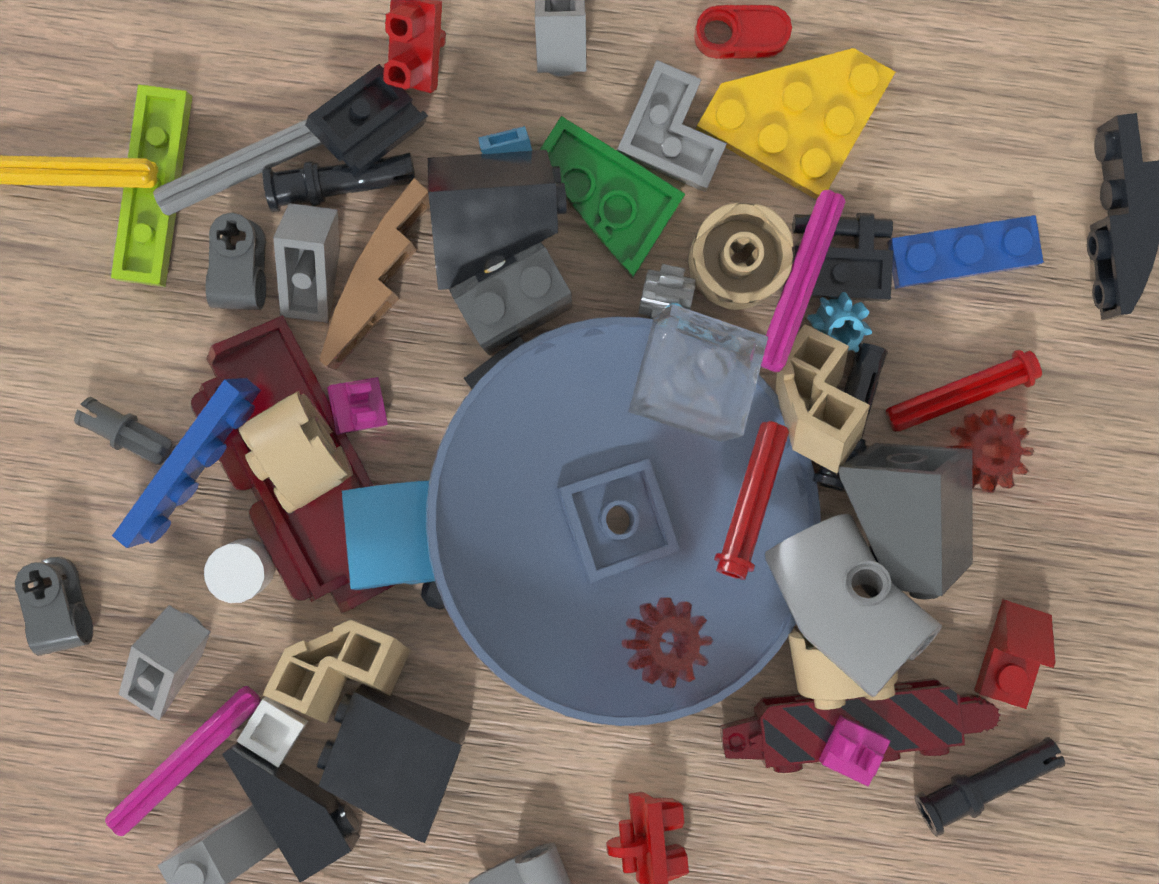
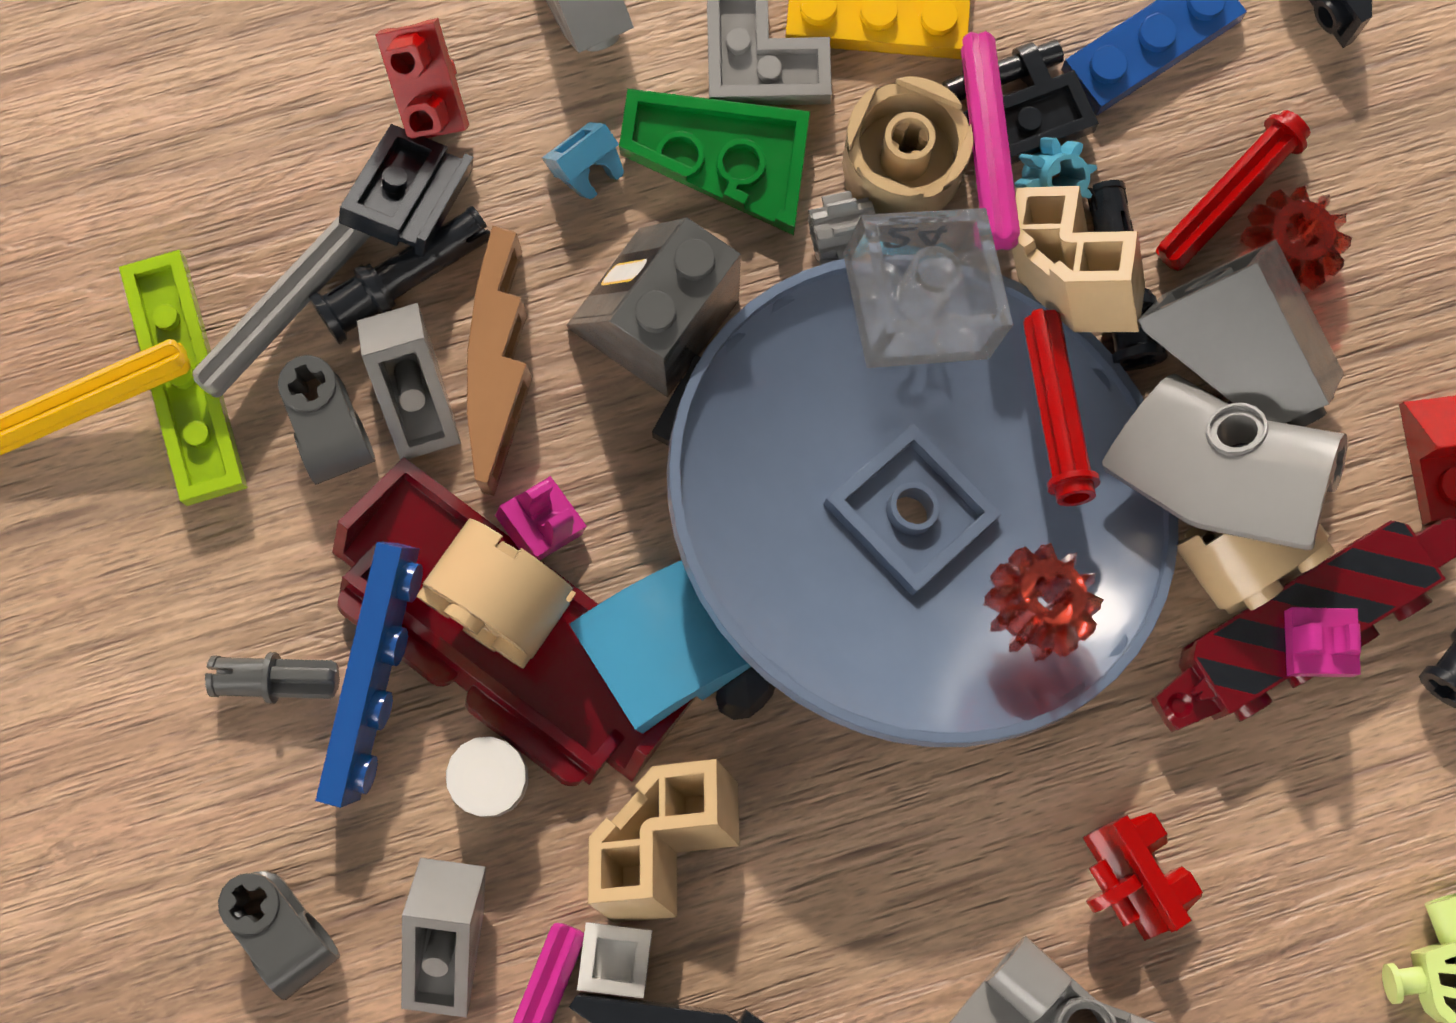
camera: 25 degrees left, 10 degrees down
(392, 758) = (779, 916): black slope -> none
(490, 209) = (598, 218): black slope -> none

